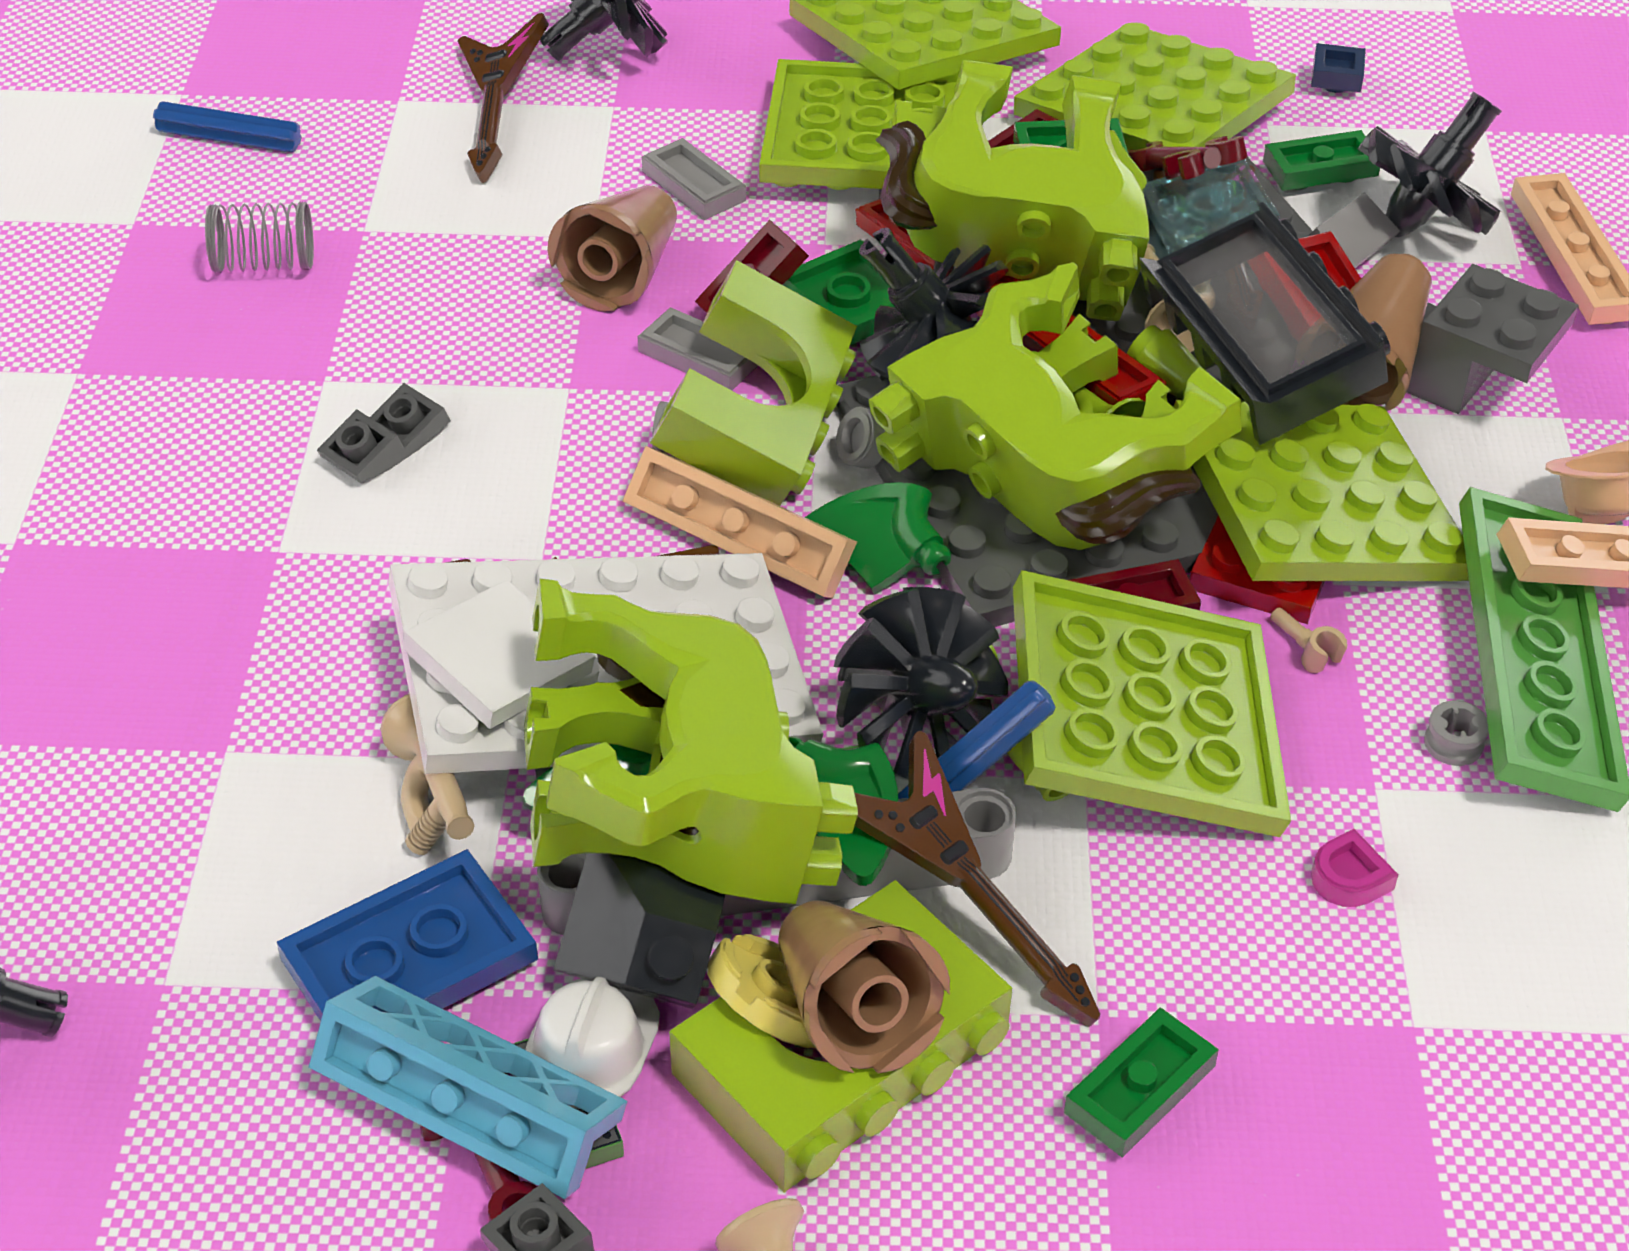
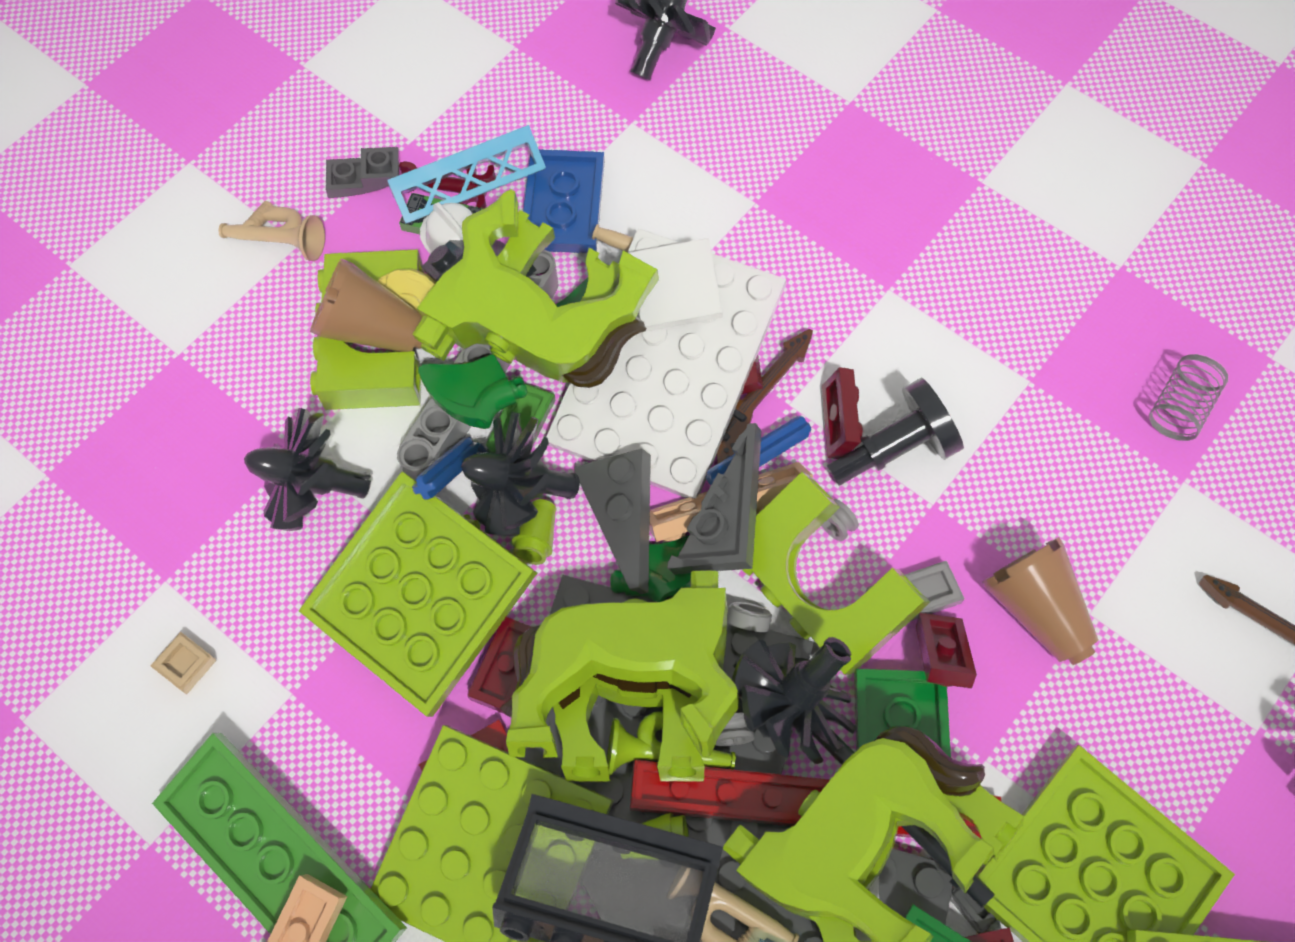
camera: 130 degrees right, 20 degrees up
(394, 432) = (946, 372): dark grey slope -> none
(483, 390) = (924, 423): none -> black piece
(526, 483) = (841, 413): none -> dark red plate
(647, 529) = (771, 444): none -> blue axle
(694, 178) = (1117, 718): light grey tile -> none
(789, 462) = (725, 525): none -> dark grey wing
(823, 594) = (621, 503): none -> dark grey wing
(935, 837) = (414, 412): reddish brown piece -> none
(1140, 1081) = (240, 426): green plate -> none
(1148, 879) = (299, 471): none -> black piece
(1317, 644) = (400, 746): hand -> none
(1351, 871) = (256, 626): dark pink tile -> none
(1456, 749) = (265, 754): light grey bush -> none
(1473, 911) = (183, 663): none -> tan tile

